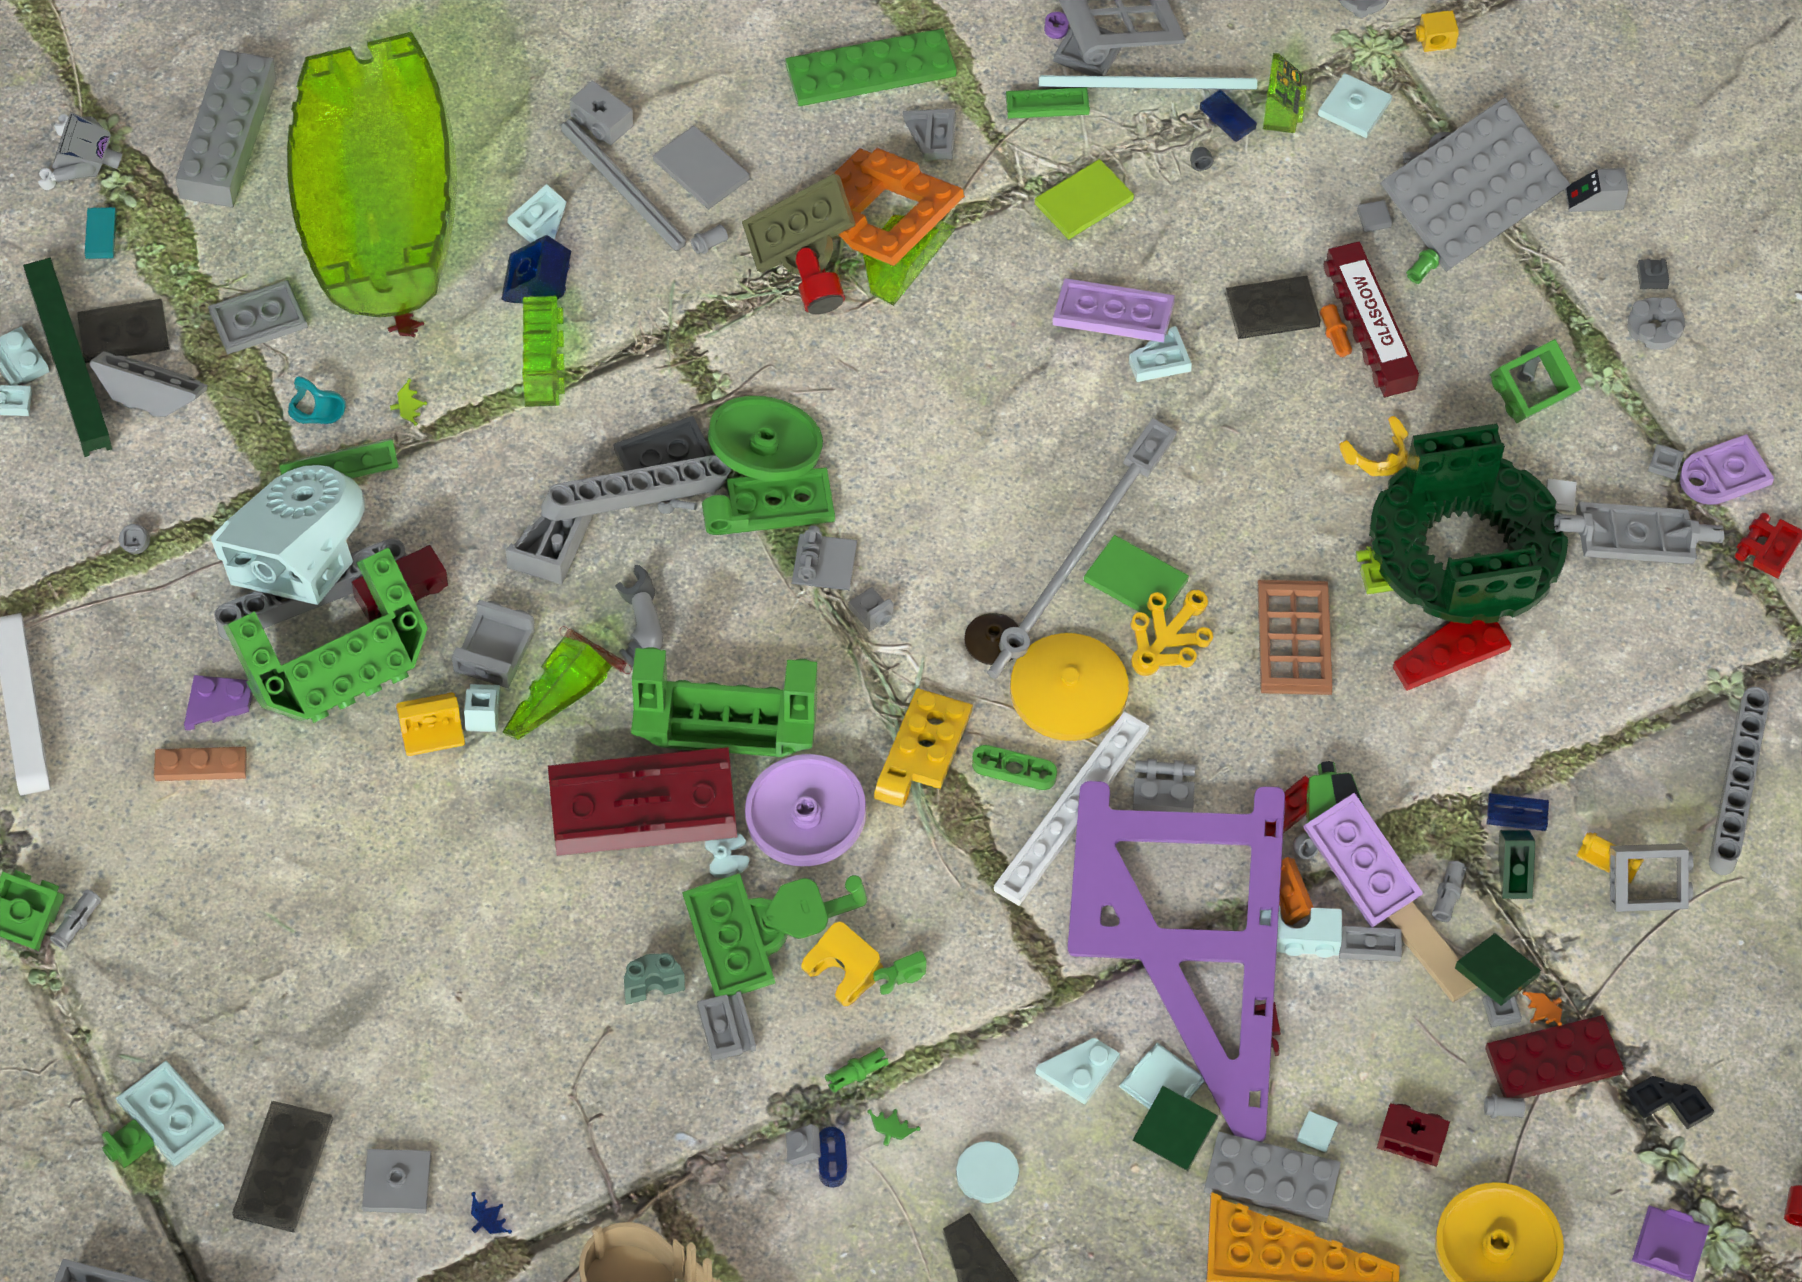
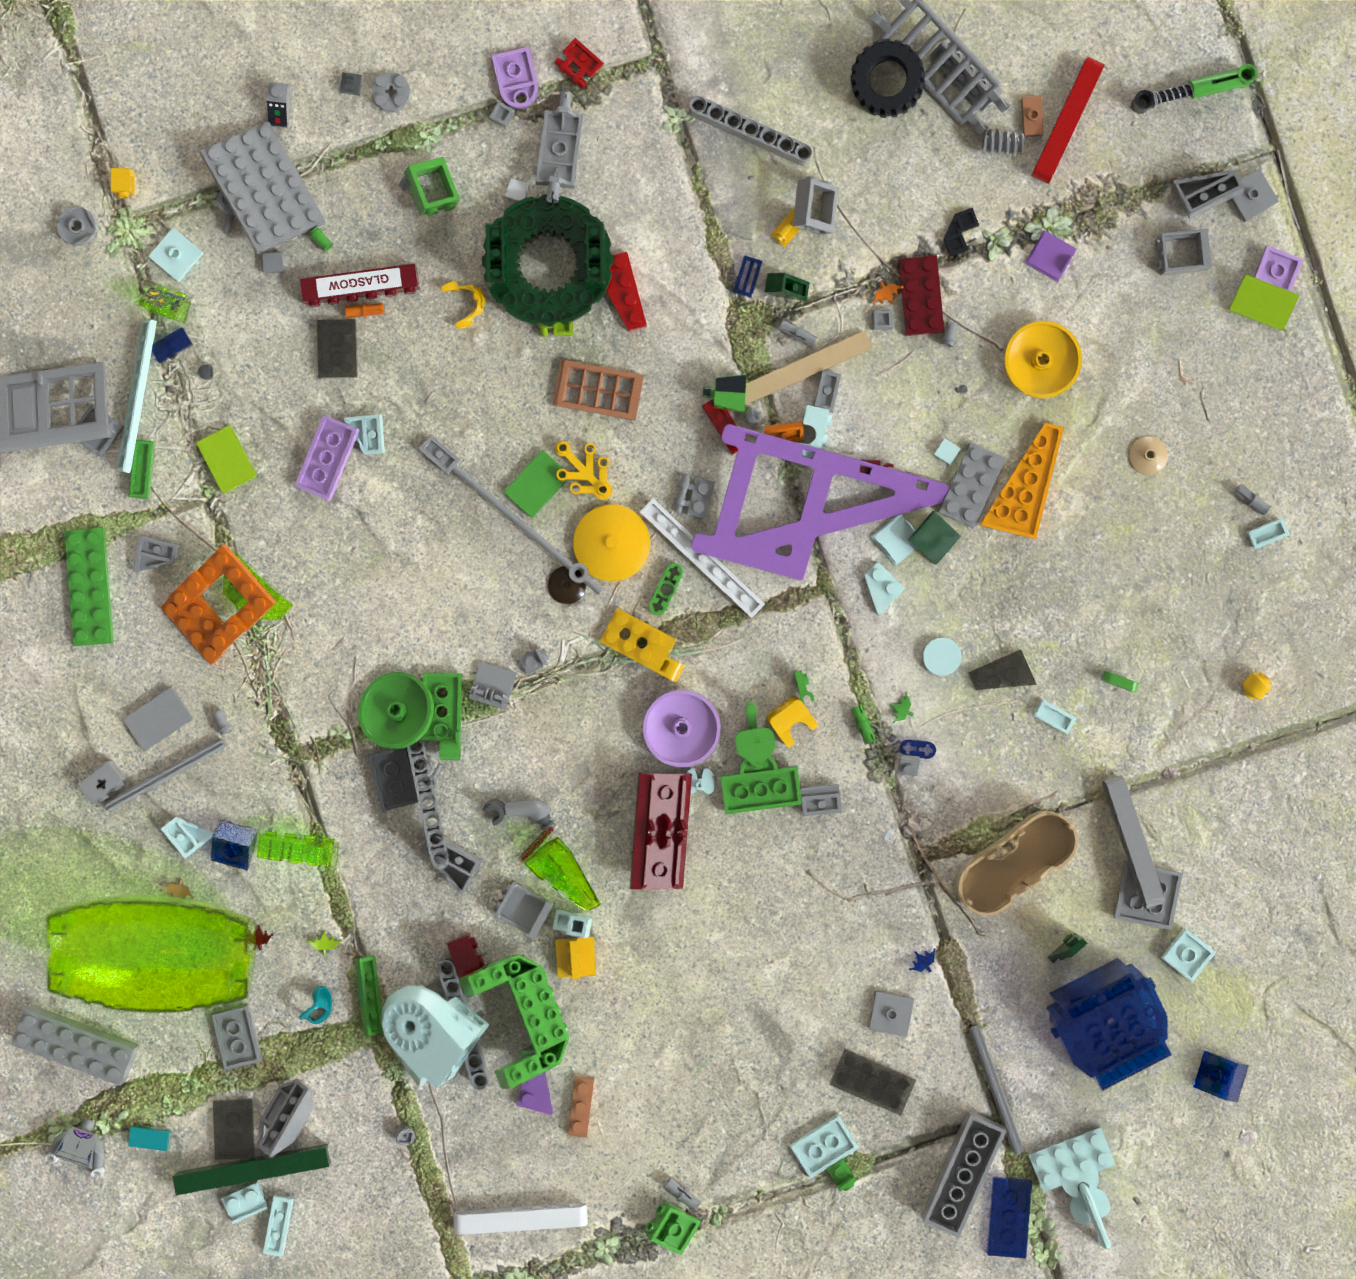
camera: 85 degrees left, 30 degrees up
(462, 220) = (178, 889): none -> piece
(652, 973) = (779, 844): sand green cylinder -> none
(722, 715) = (611, 811): bright green wedge -> none
(800, 237) = (236, 661): olive plate -> none
(1056, 32) = (74, 455): medium lavender bush -> none
(1363, 860) = (778, 384): lavender plate -> none
(1423, 1146) = (969, 387): dark red brick -> none
(1497, 969) = (859, 316): dark green tile -> none

